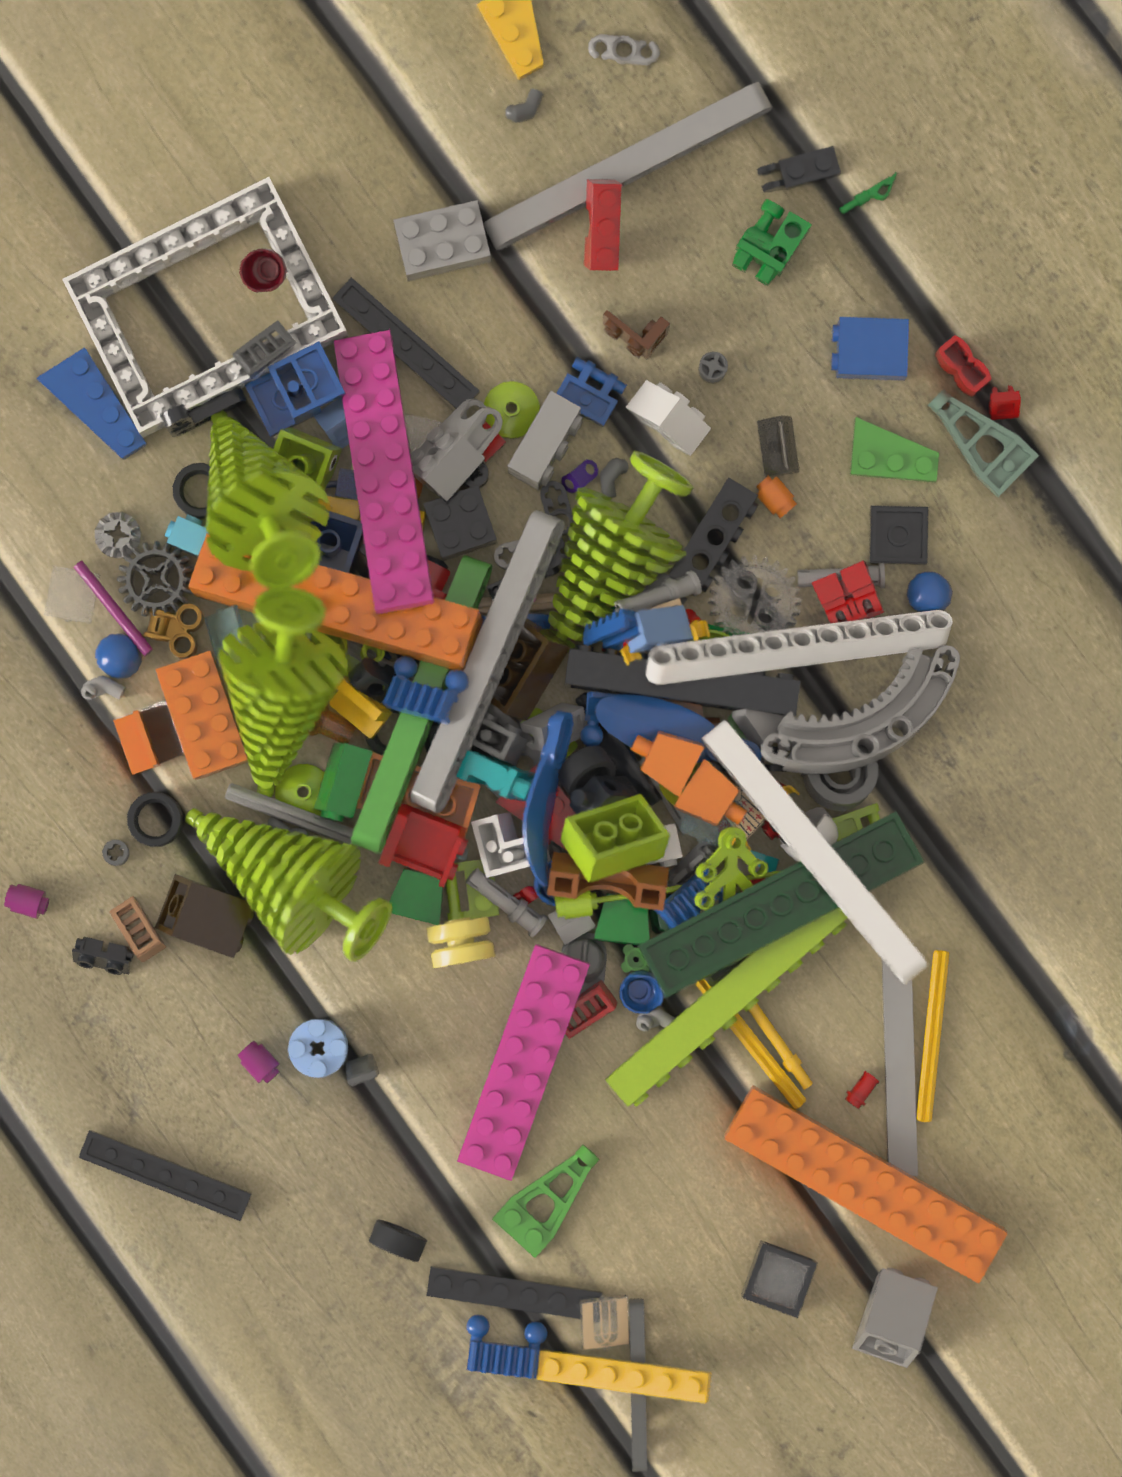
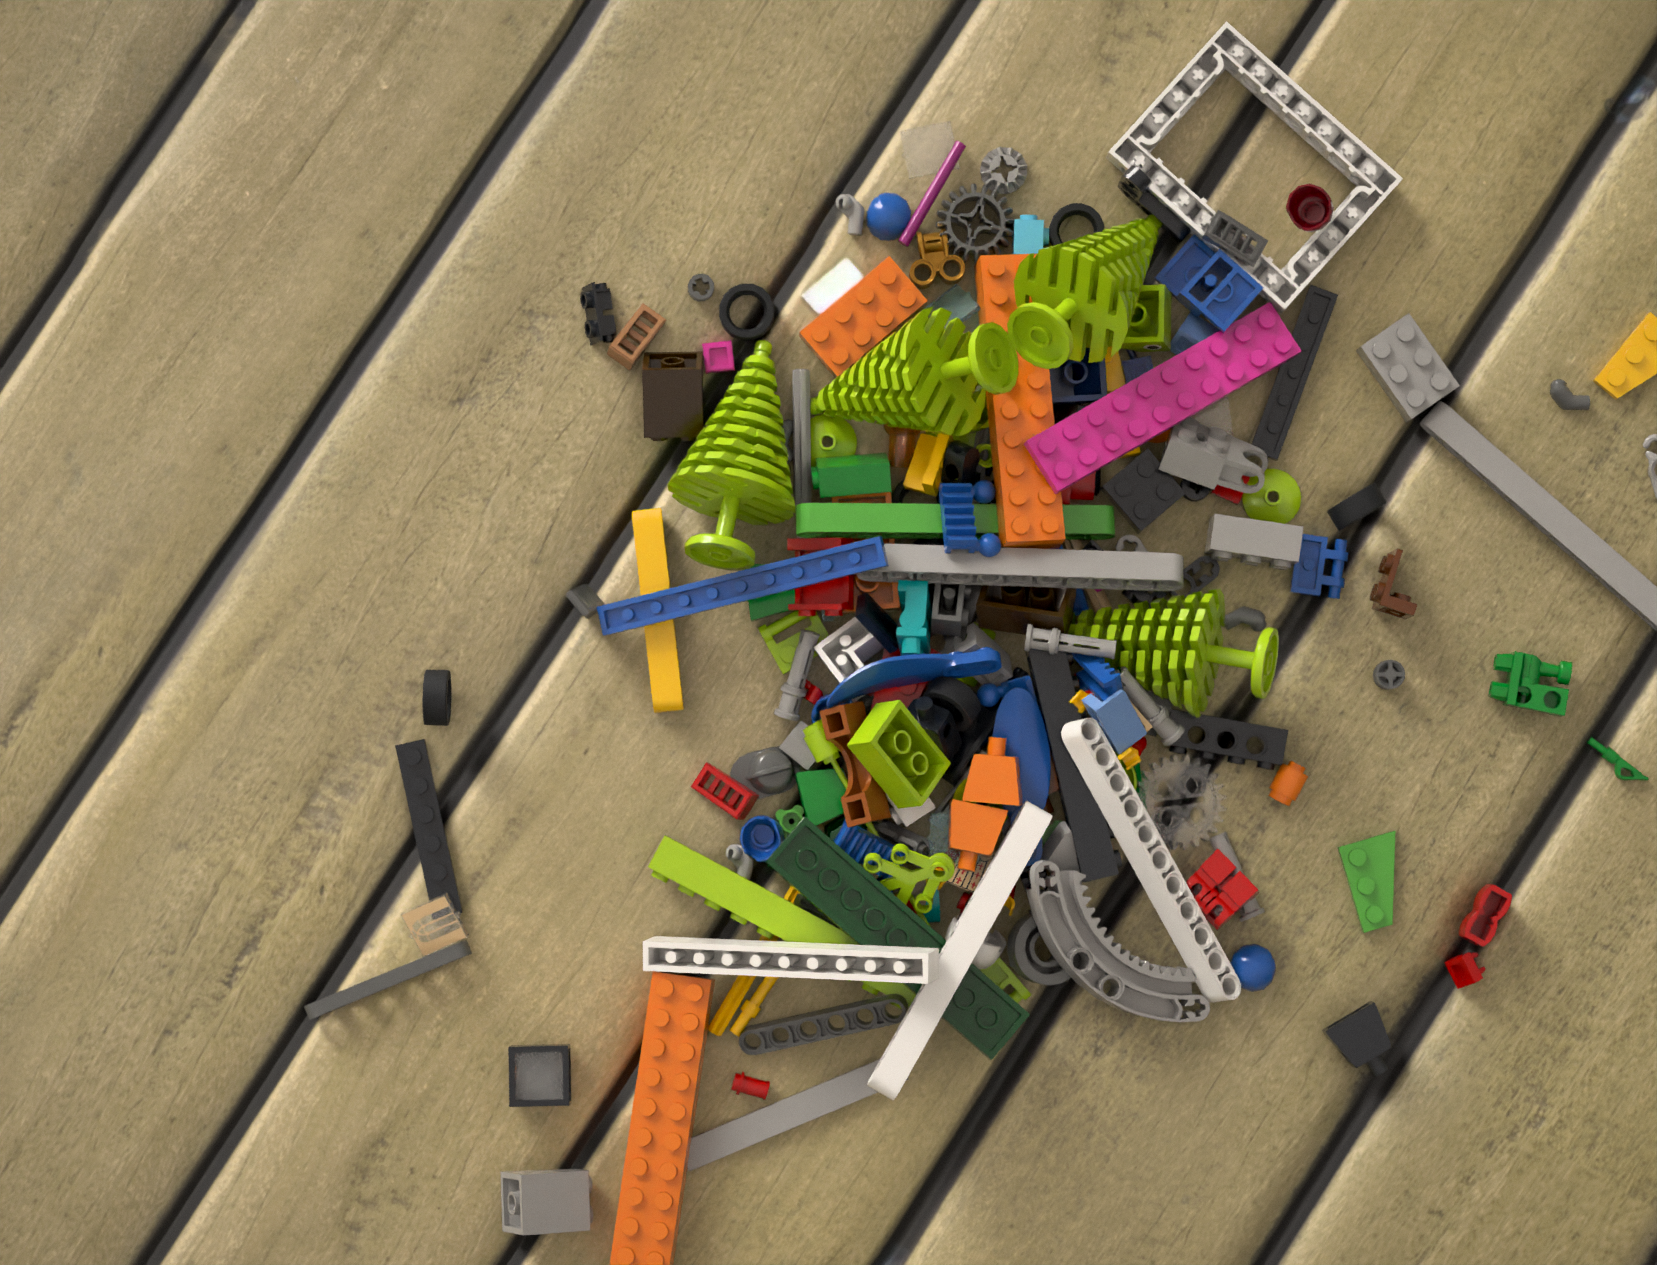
camera: 70 degrees right, 0 degrees up
(26, 900) = (622, 221): magenta brick -> none
(88, 395) = (1124, 92): blue wing -> none
(136, 743) = (812, 266): orange panel -> none
(165, 1175) = (413, 454): black plate -> none
(186, 861) = (718, 357): none -> dark pink tile
(259, 1062) = (554, 500): magenta brick -> none
(301, 1048) = (583, 535): light blue brick -> none
(396, 1007) = (661, 636): none -> yellow beam
(406, 920) = (742, 586): none -> blue plate
(460, 941) = (745, 645): light yellow wheel -> none
(486, 810) = (877, 622): none -> black tile
(501, 1357) = (364, 840): blue gear -> none
(523, 1062) = (652, 751): dark pink plate -> none
(524, 1226) = (496, 812): bright green plate -> none
(550, 336) = (1356, 506): none -> black tyre
(563, 655) = (1106, 647): none -> light grey pin
(580, 476) = (1233, 588): dark purple piece -> none
(604, 209) = (1482, 517): red arch -> none
(624, 1376) = (391, 962): yellow plate -> none
(669, 416) = (1325, 651): white brick -> none
(764, 1008) = (791, 959): none -> white brick
(778, 446) = (1337, 767): clear smoke slope -> none
(802, 169) = (1614, 686): black hinge -> none
(828, 1002) = (824, 1028): none -> dark grey beam
(871, 348) = (1467, 819): blue brick -> none
(898, 535) = (1297, 916): black tile -> none
(932, 1036) = (828, 1134): yellow axle -> none
(1007, 466) = (1407, 996): sand green plate -> none
(1030, 520) = (1361, 1038): none -> black torso

